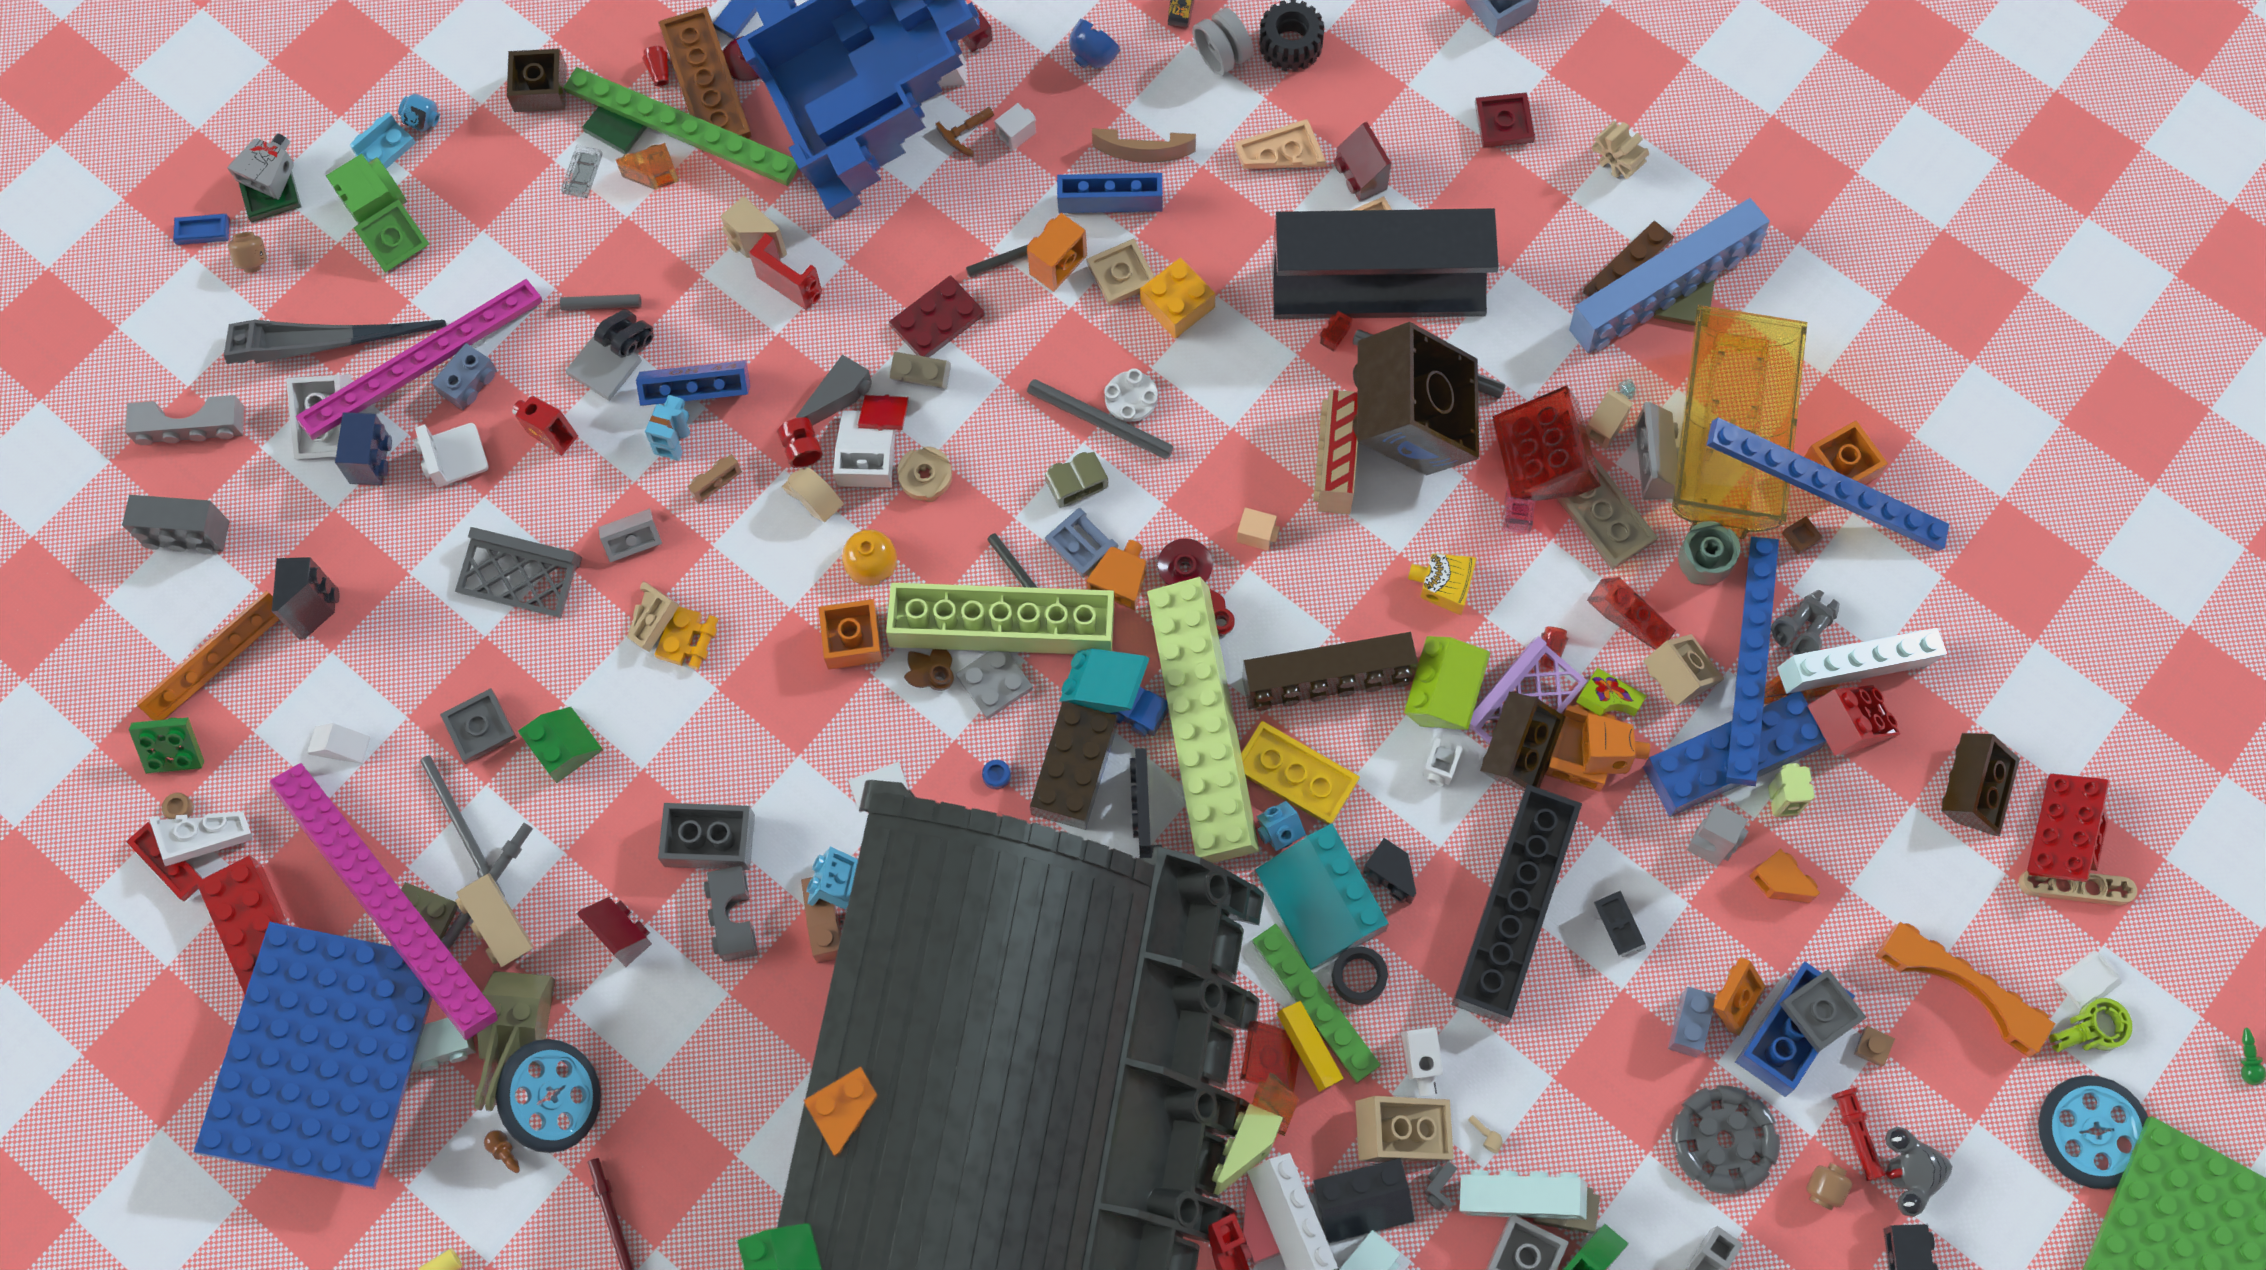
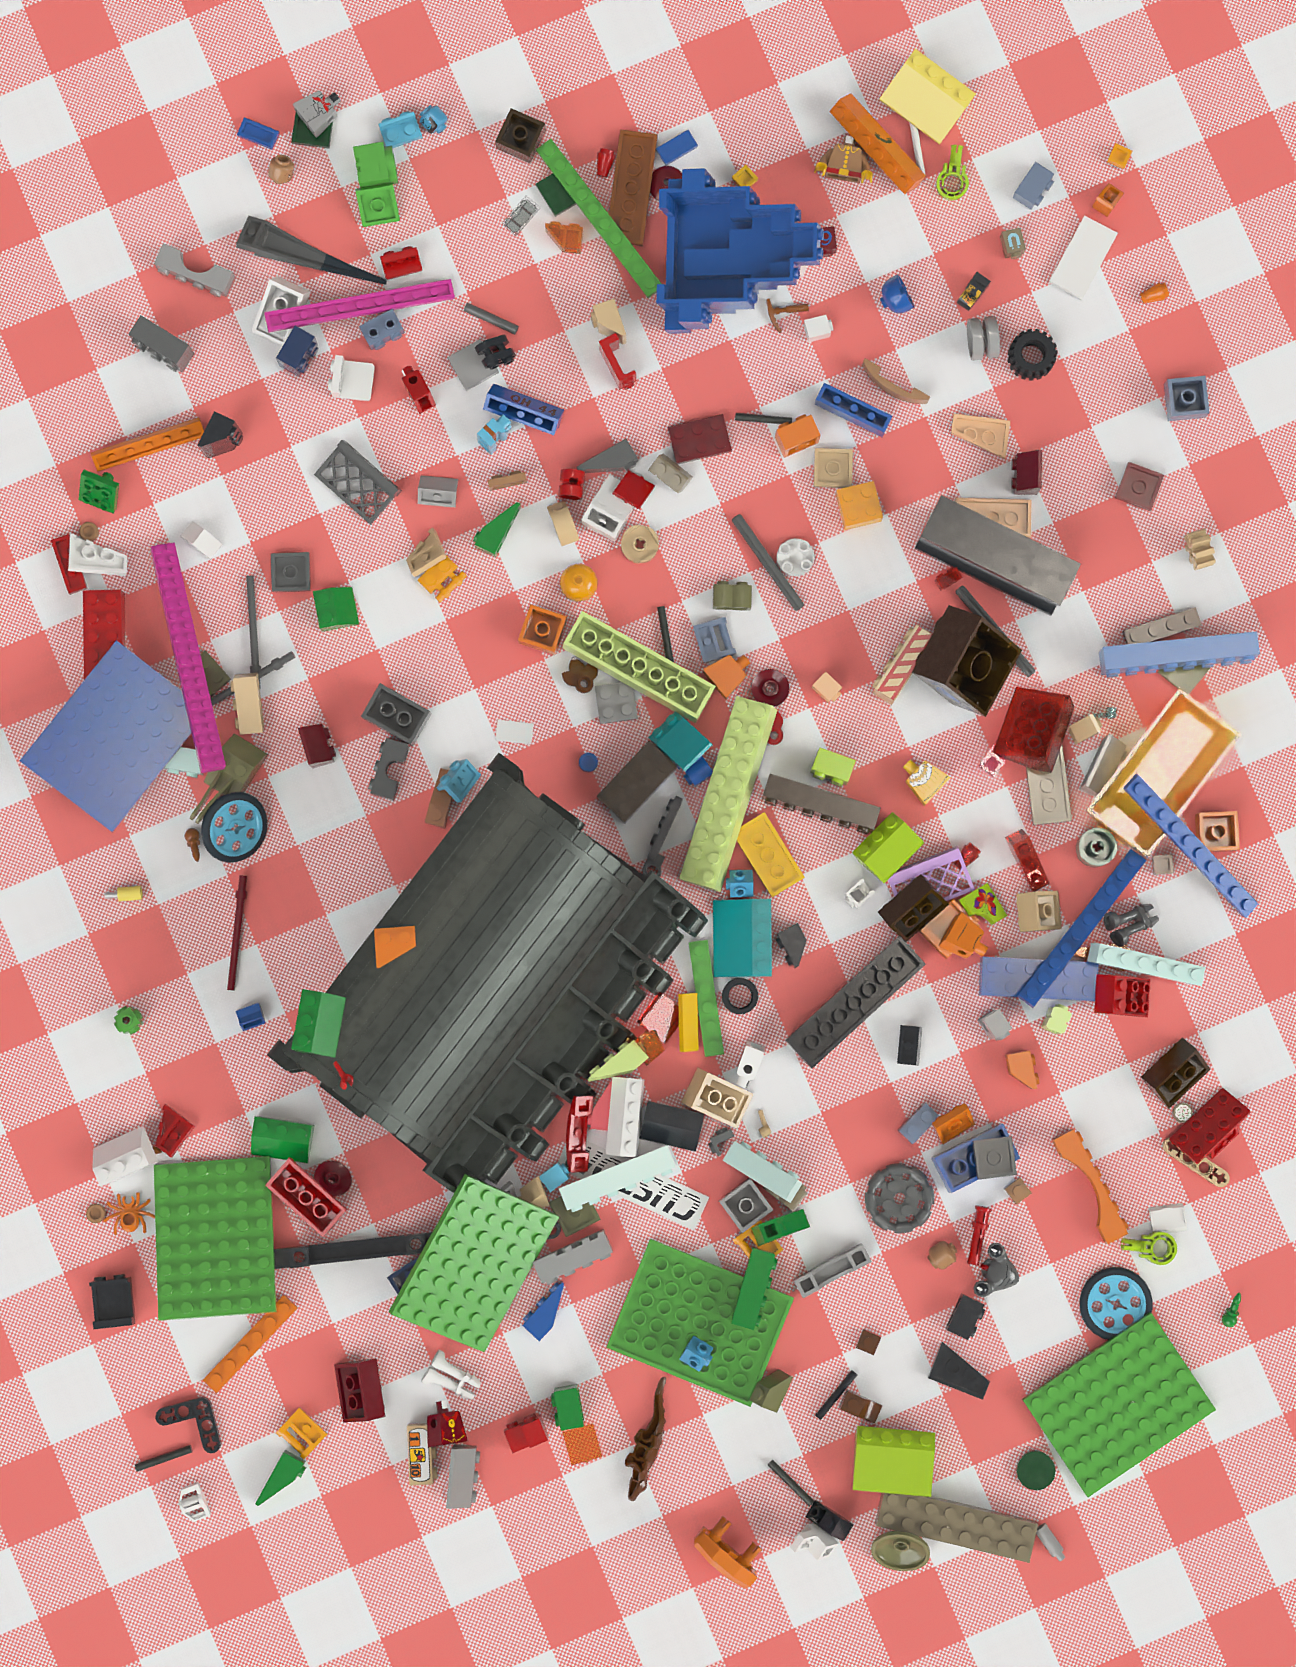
camera: 25 degrees right, 15 degrees up
(452, 287) = (401, 263): none -> red bracket
(729, 547) = (495, 532): none -> green slope
(1319, 618) = (832, 767): none -> lime brick
(2020, 831) = (1182, 1112): none -> tile

